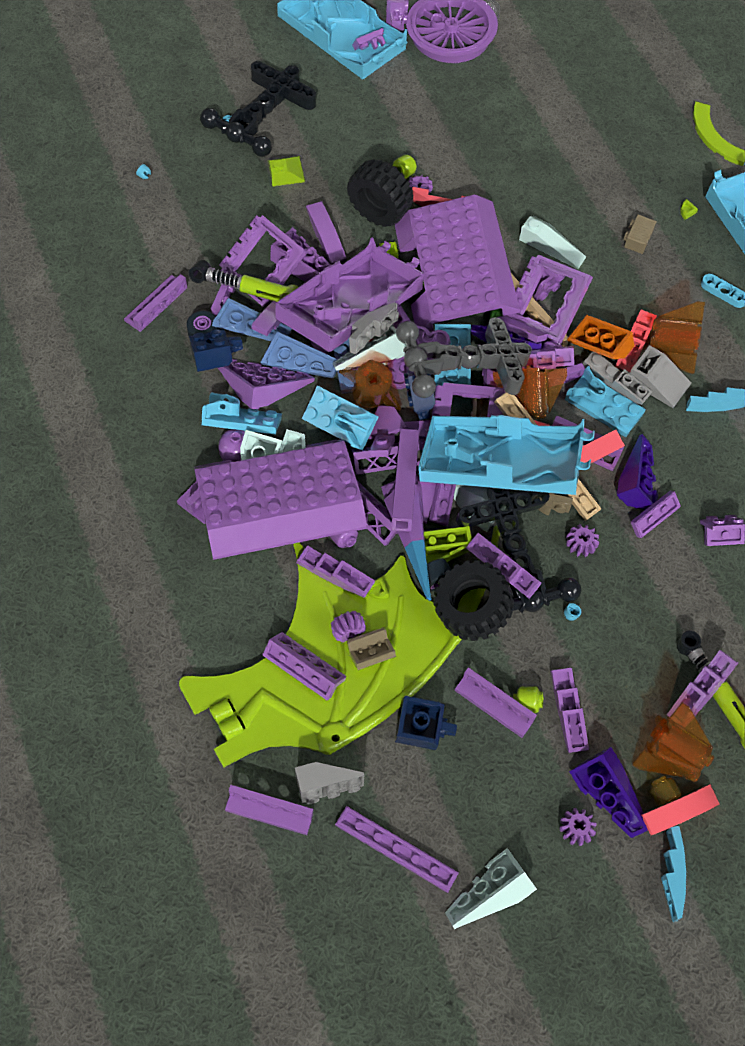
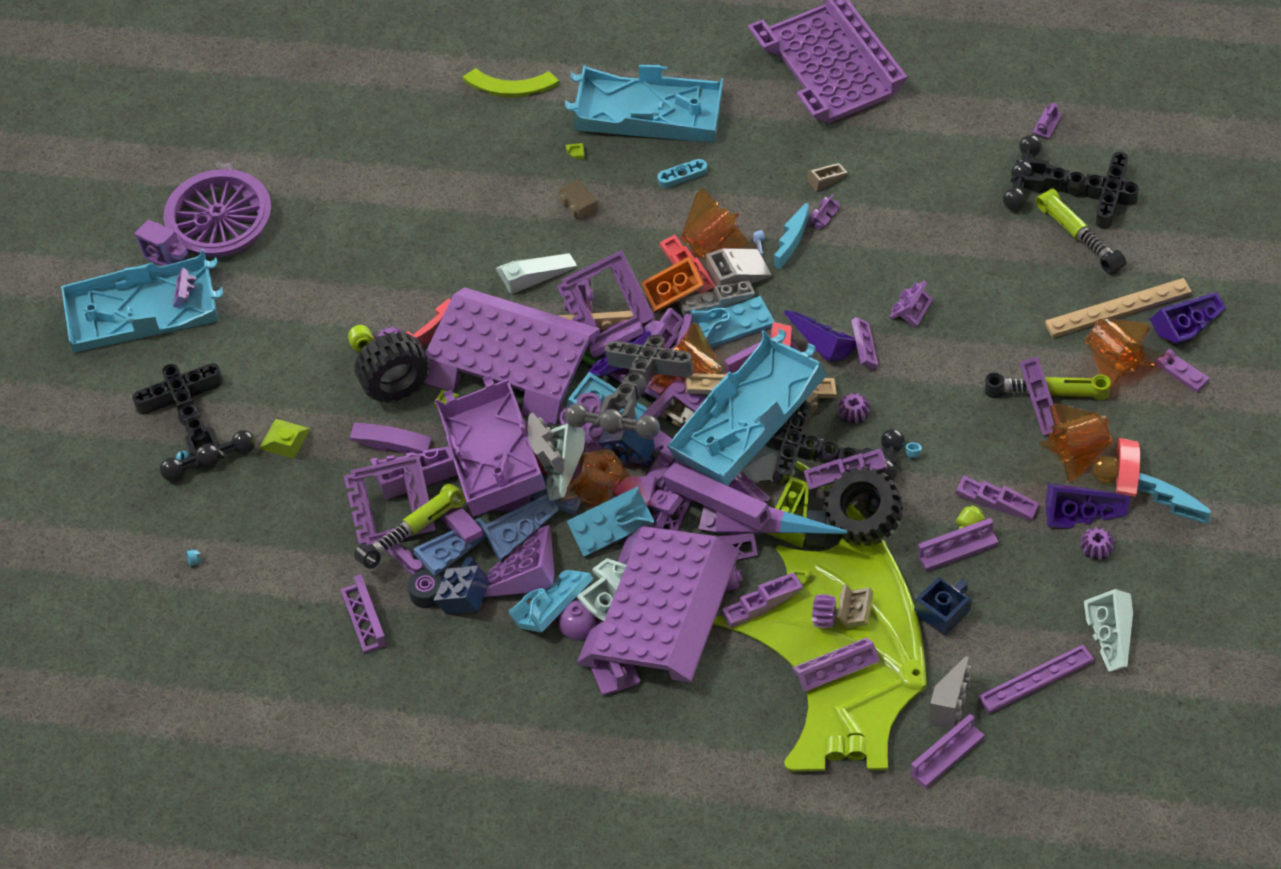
camera: 50 degrees left, 10 degrees down
(704, 377) = (758, 237): none -> light blue hand

